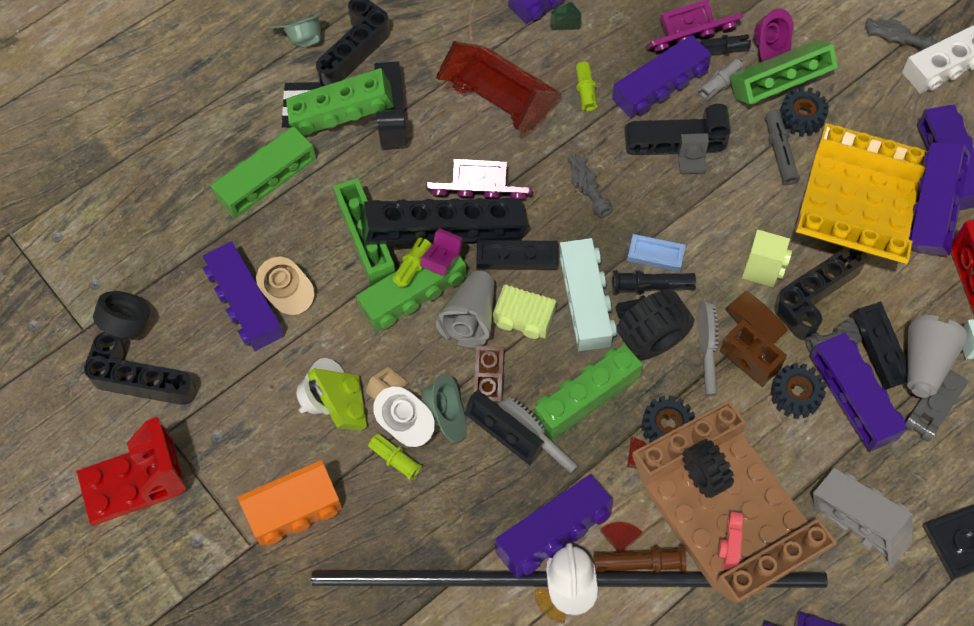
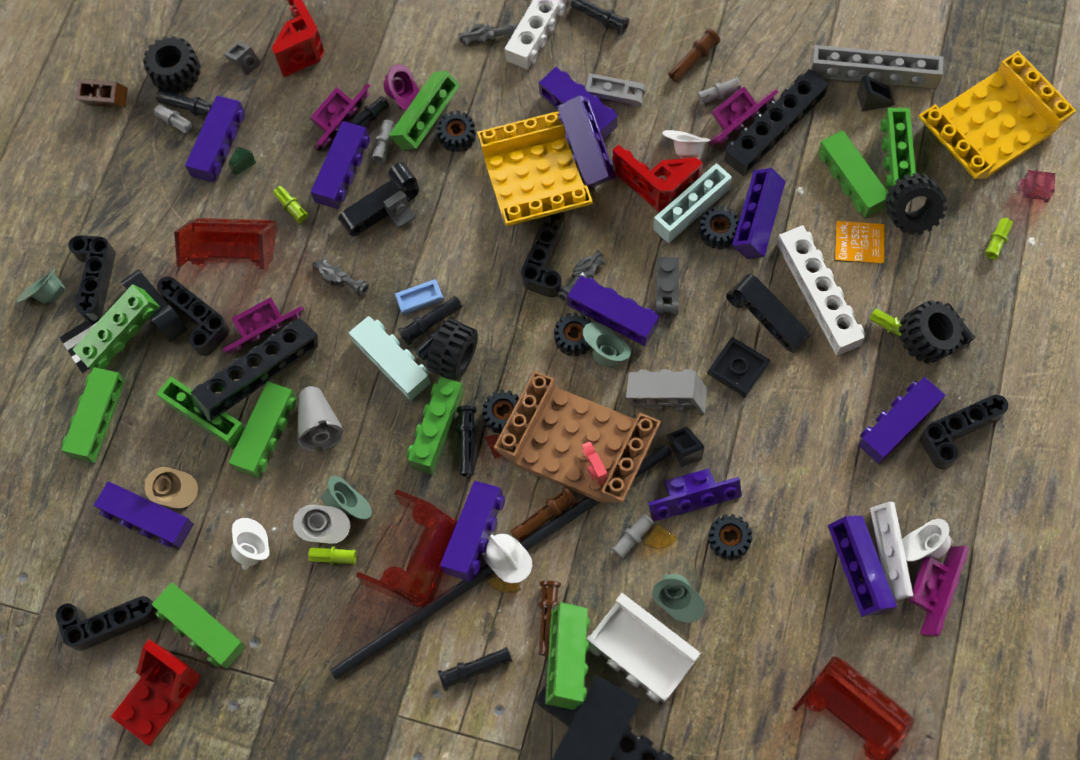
camera: 30 degrees left, 5 degrees up
(118, 325) = (62, 596): black tyre -> none
(217, 438) = (199, 626): none -> bright green brick
(290, 503) = (284, 635): orange slope -> none
(341, 397) = (268, 540): lime wing -> none
(383, 380) = (289, 508): tan slope -> none
(411, 263) = (253, 413): lime axle -> none
(423, 129) = (191, 310): none -> black beam
(442, 253) = (271, 392): magenta bracket -> none
(472, 535) = (423, 572): none -> clear red windscreen
(489, 371) = (359, 456): reddish brown slope -> none
(503, 427) = (386, 485): black plate -> none
(517, 254) = (322, 359): black plate -> none
(524, 312) = (355, 397): yellowish green brick -> none
(526, 420) = (416, 476): light grey piece -> none
(616, 417) = (466, 430): none -> black pin
(621, 535) = (520, 507): clear red tile -> none
(707, 340) = (492, 336): light grey piece -> none
(708, 468) = (549, 426): black tyre -> none
(753, 353) = (529, 327): reddish brown brick -> none
(757, 315) = (517, 300): reddish brown slope -> none
(767, 258) = (498, 255): yellowish green brick -> none
(779, 138) = (451, 161): dark grey pin -> none
(826, 424) = (606, 345): none -> sand green piece
(848, 590) = (685, 446): none -> black slope
(882, 344) = (610, 268): black plate -> none
(932, 352) = (644, 254): light grey cone -> none

